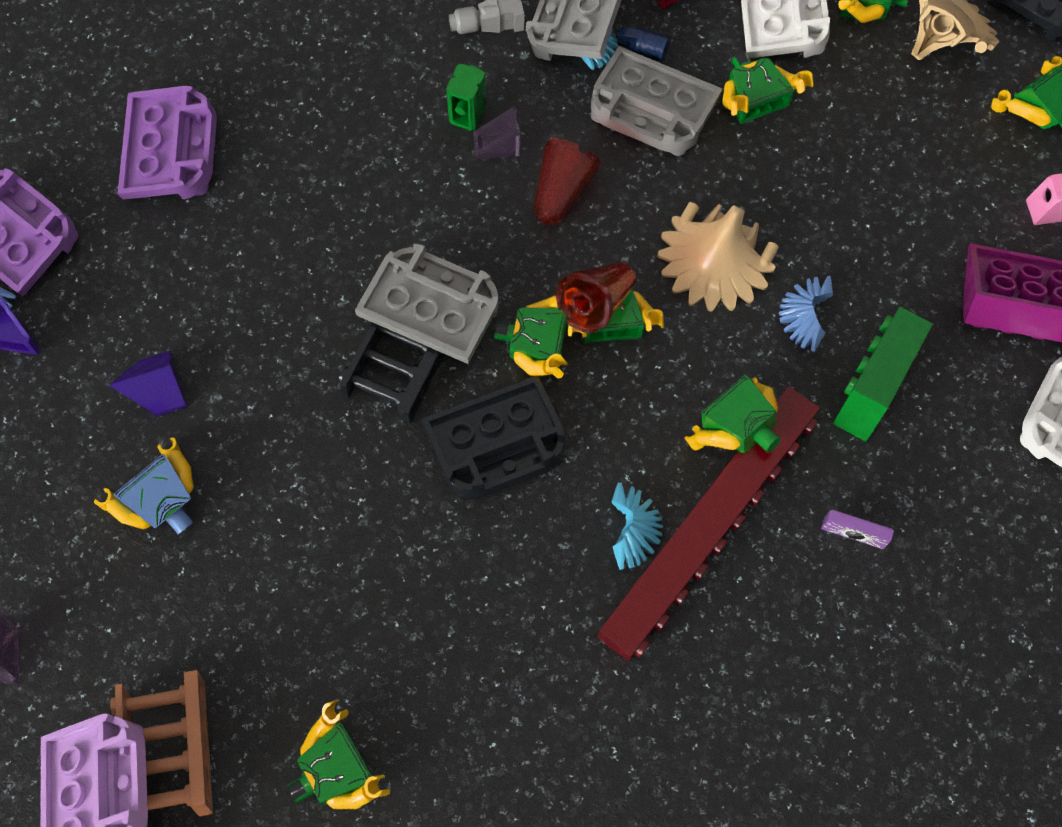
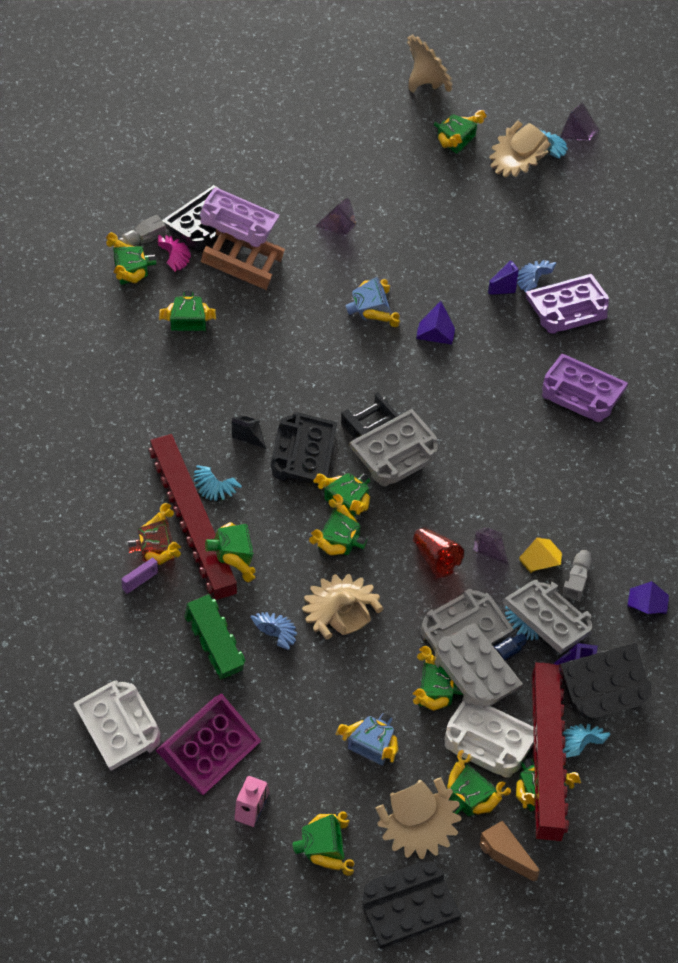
camera: 120 degrees right, 15 degrees down
(466, 96) = (520, 528): green brick -> none
(491, 58) = (541, 555): none -> yellow slope
(505, 539) = (247, 430): none -> black slope
(594, 295) = (345, 510): clear red cone -> none
(710, 52) = (476, 667): none -> light grey plate
(789, 540) = (155, 538): none -> torso
(881, 115) = (371, 738): none -> torso

